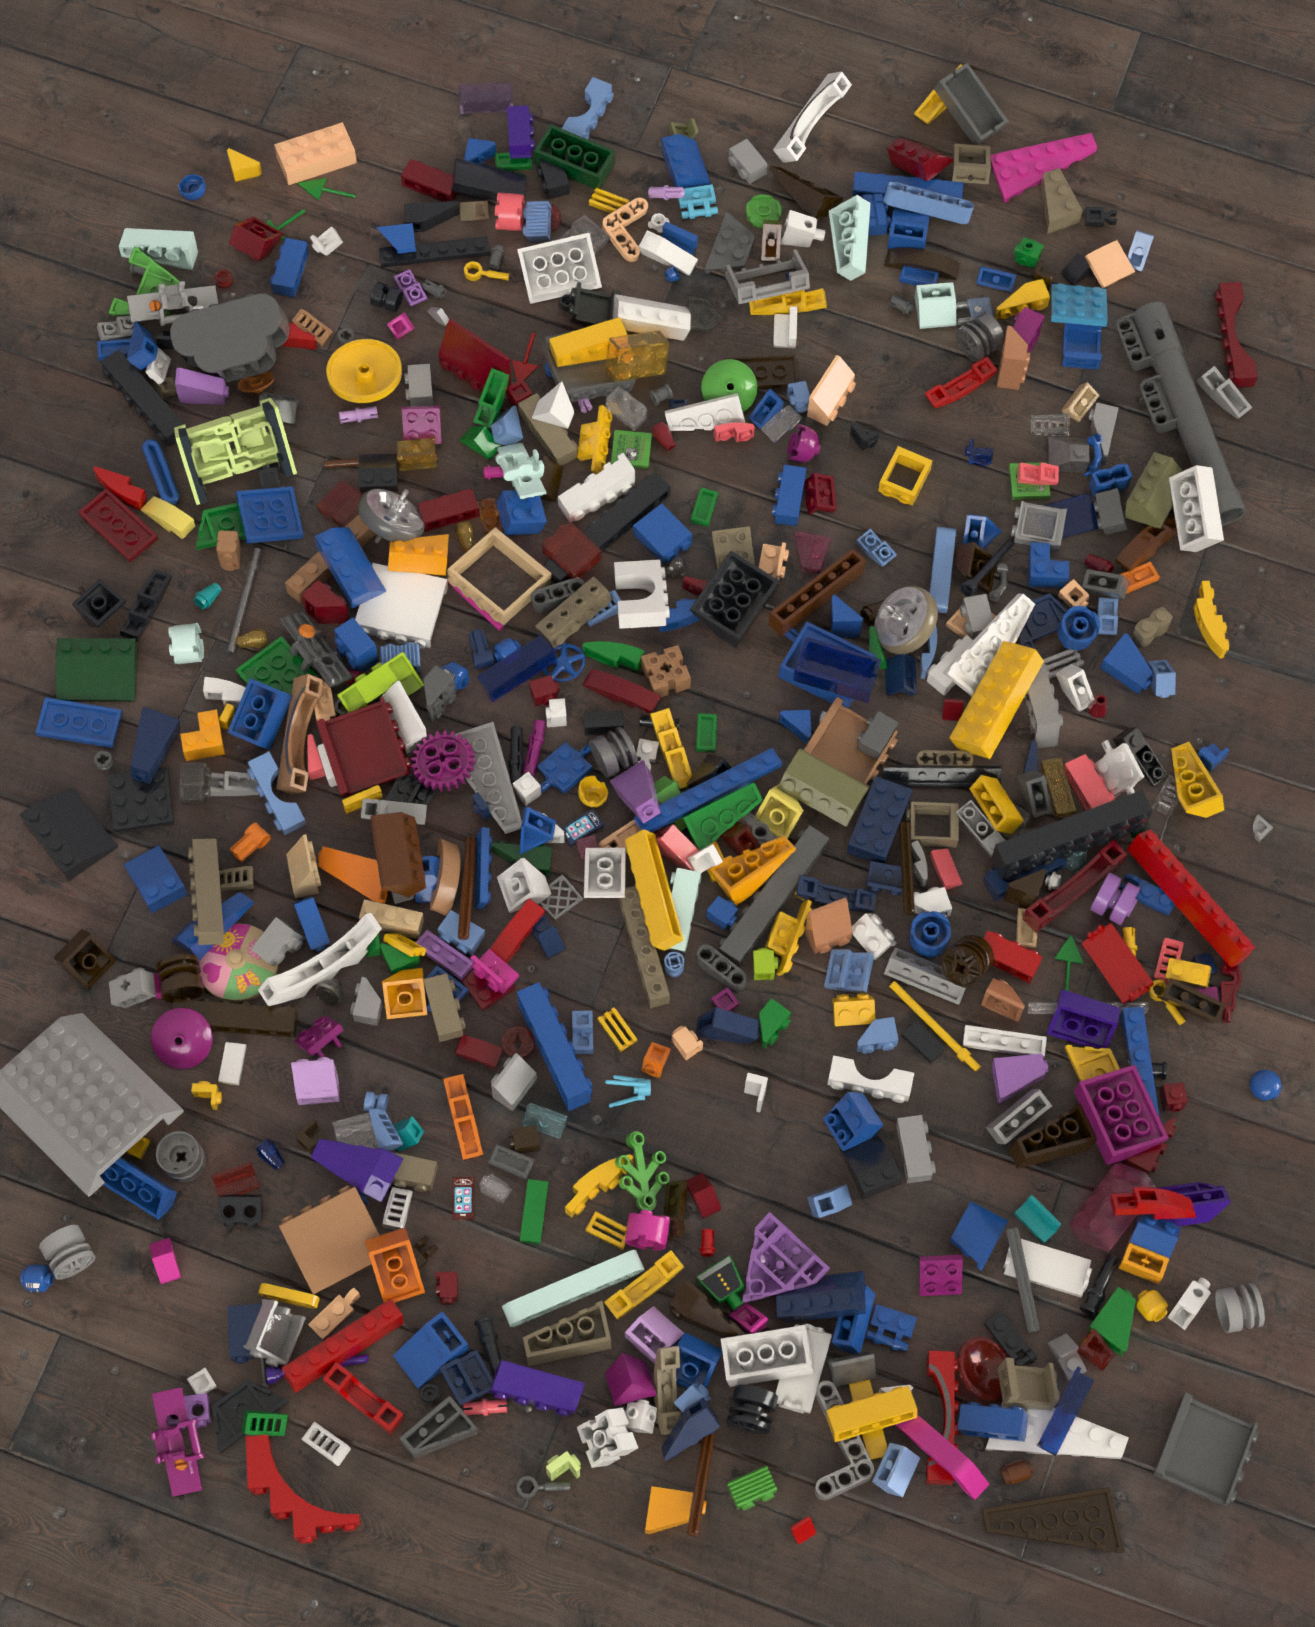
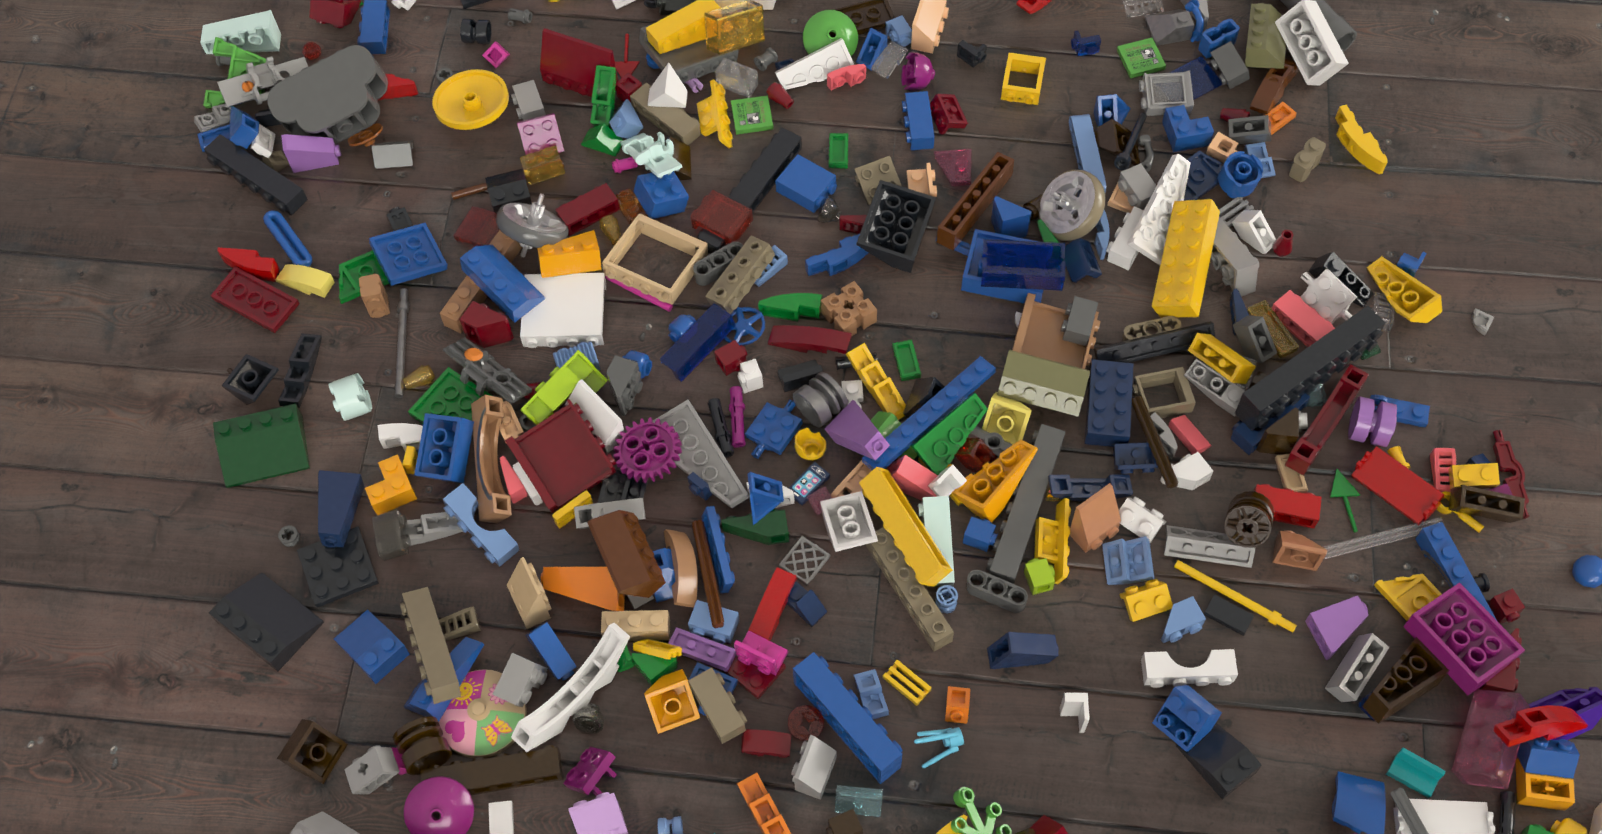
camera: 10 degrees left, 5 degrees down
(79, 722) = (254, 503): blue plate -> none
(206, 597) = (361, 347): teal cone -> none
(208, 452) = (365, 176): yellowish green container -> none
(253, 838) = (467, 578): orange piece -> none
(303, 318) = (398, 69): medium nougat slope -> none
(355, 646) = (527, 357): blue brick -> none
(358, 414) = (474, 142): lavender pin -> none
(368, 1004) = (634, 722): light grey slope -> none
(411, 289) = (499, 21): medium lavender slope -> none
(439, 315) = (531, 37): light grey tile -> none
(481, 653) = (657, 337): dark blue piece -> none
(521, 883) = (764, 554): white slope -> none
(527, 789) = (741, 457): white brick -> none
(598, 489) = (731, 156): white wedge -> none
(646, 611) = (803, 224): white arch -> none
(686, 1042) = (984, 677): light nougat brick -> none
(725, 1000) = (1011, 623): magenta plate -> none
(772, 1020) = (1067, 630): green slope -> none
(798, 723) = (996, 329): blue slope -> none
(829, 1201) = (1191, 811): medium blue slope -> none
(875, 548) = (1020, 152): medium blue slope -> none
(915, 1149) = (1260, 730): light grey brick -> none
(922, 926) = (1199, 502): blue brick -> none
(952, 709) = (1143, 280): dark red slope -> none
(1003, 1041) = (1310, 593): white plate -> none
(1038, 475) = (1149, 49): coral slope -> none
(1083, 1020) = (1386, 551): dark purple slope -> none
(1128, 665) = (1298, 200): blue slope -> none
(1162, 678) = (1334, 203): medium blue slope -> none
(1191, 898) = (1447, 403): red brick -> none

